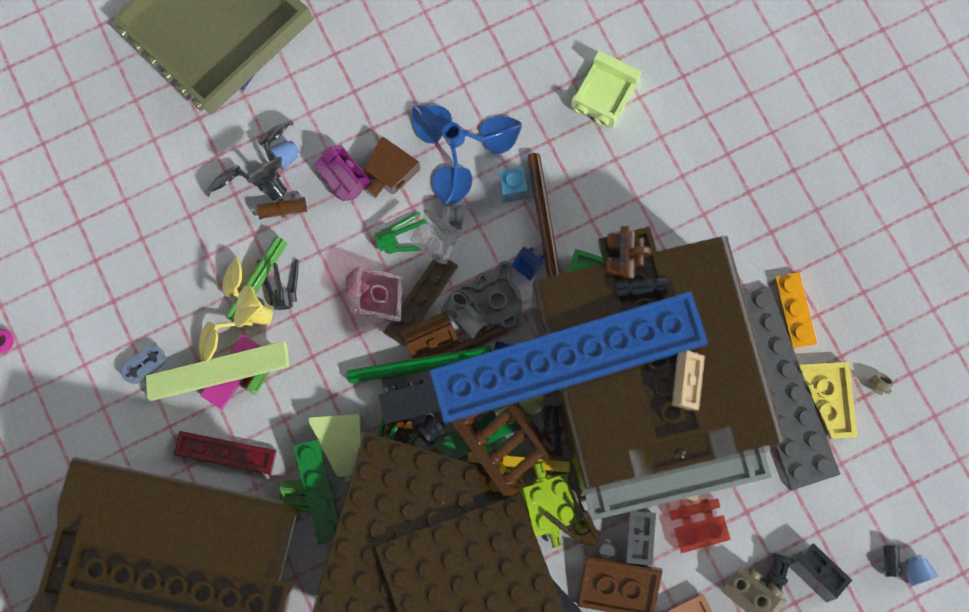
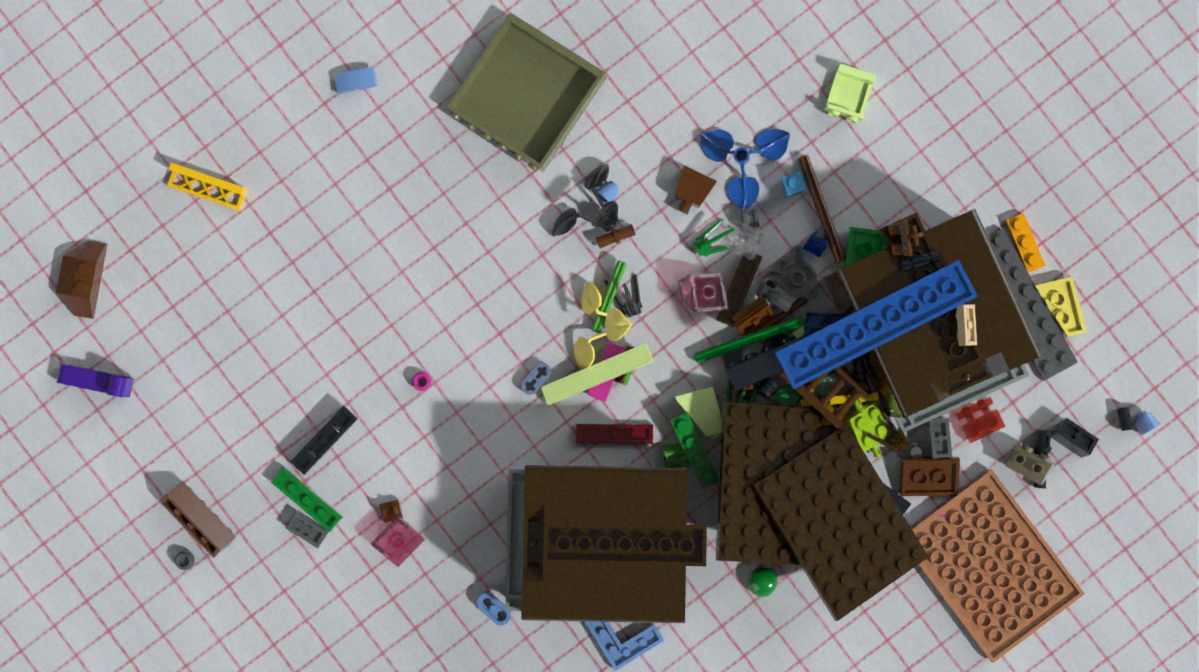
camera: 15 degrees left, 10 degrees up
(341, 173) = (657, 200): magenta brick -> none
(881, 383) = (1098, 288): dark tan plate -> none

